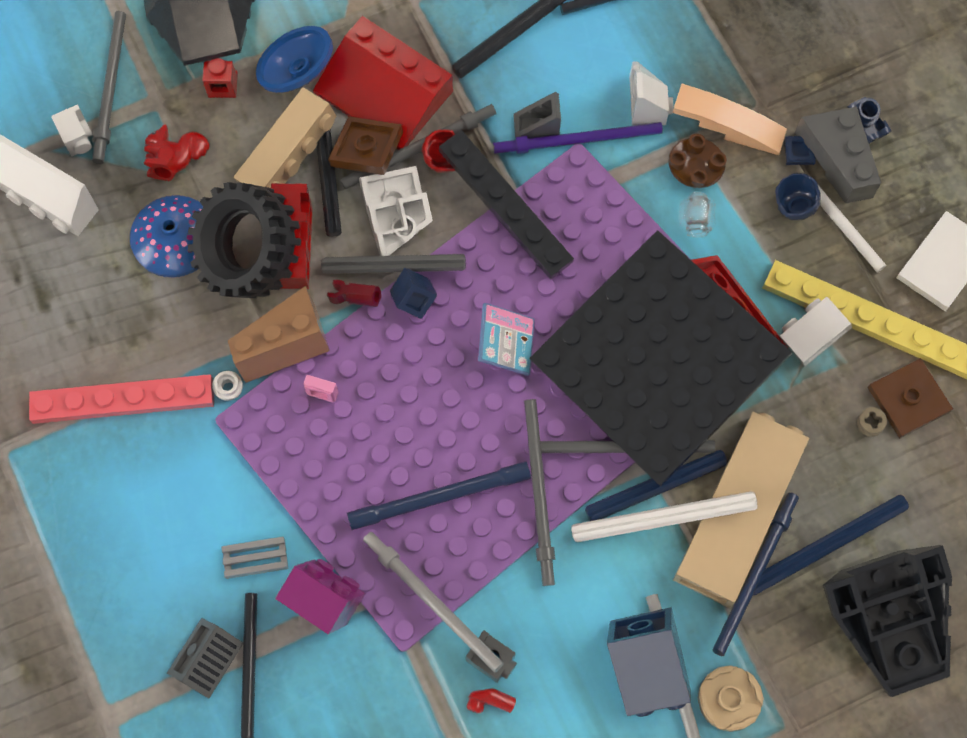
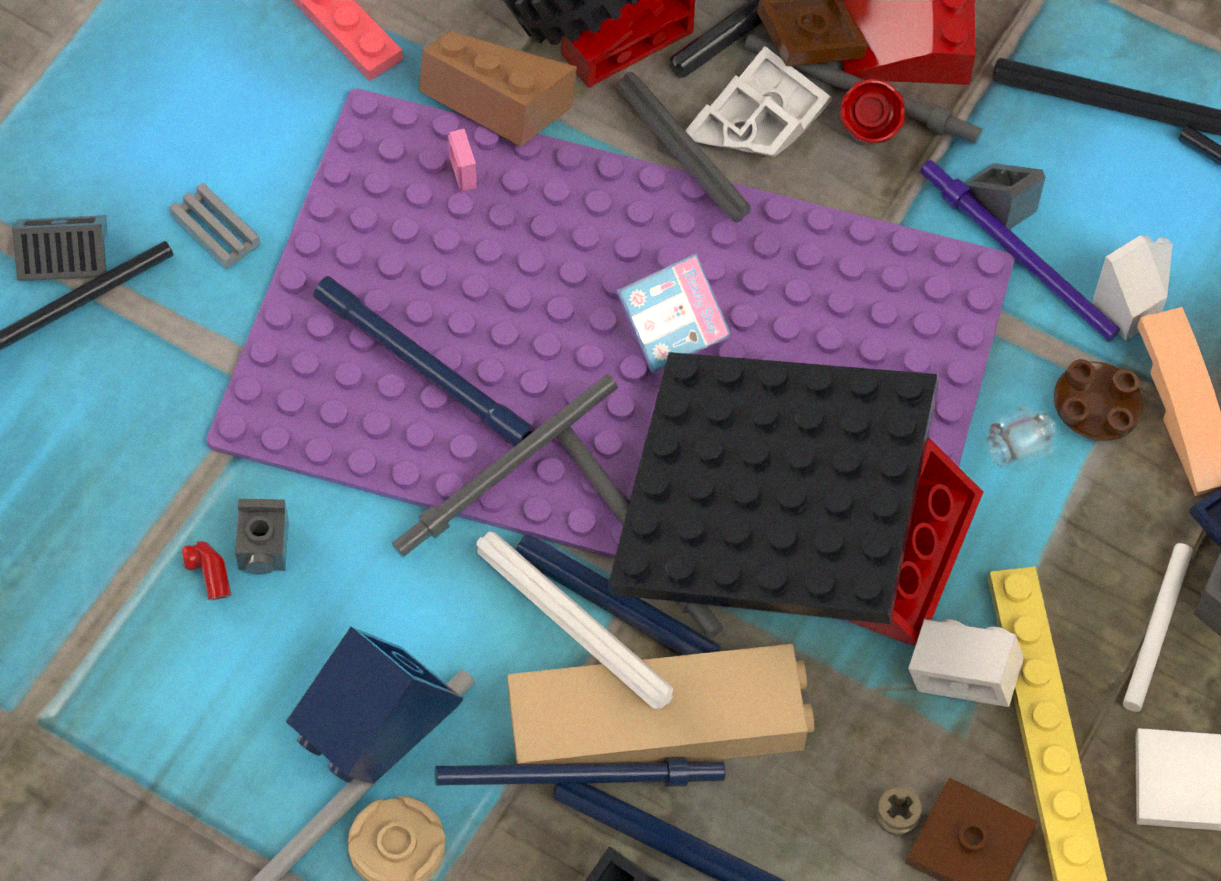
camera: 55 degrees right, 10 degrees down
(227, 377) = (401, 66): white plate -> none
(321, 595) = (206, 303): magenta brick -> none
(355, 294) = (614, 132): dark red bar -> none
(390, 559) = (305, 356): light grey bar -> none
(413, 293) = (658, 184): dark blue panel -> none
(506, 204) = (853, 215): black plate -> none
(798, 196) = (1144, 540): dark blue hair -> none

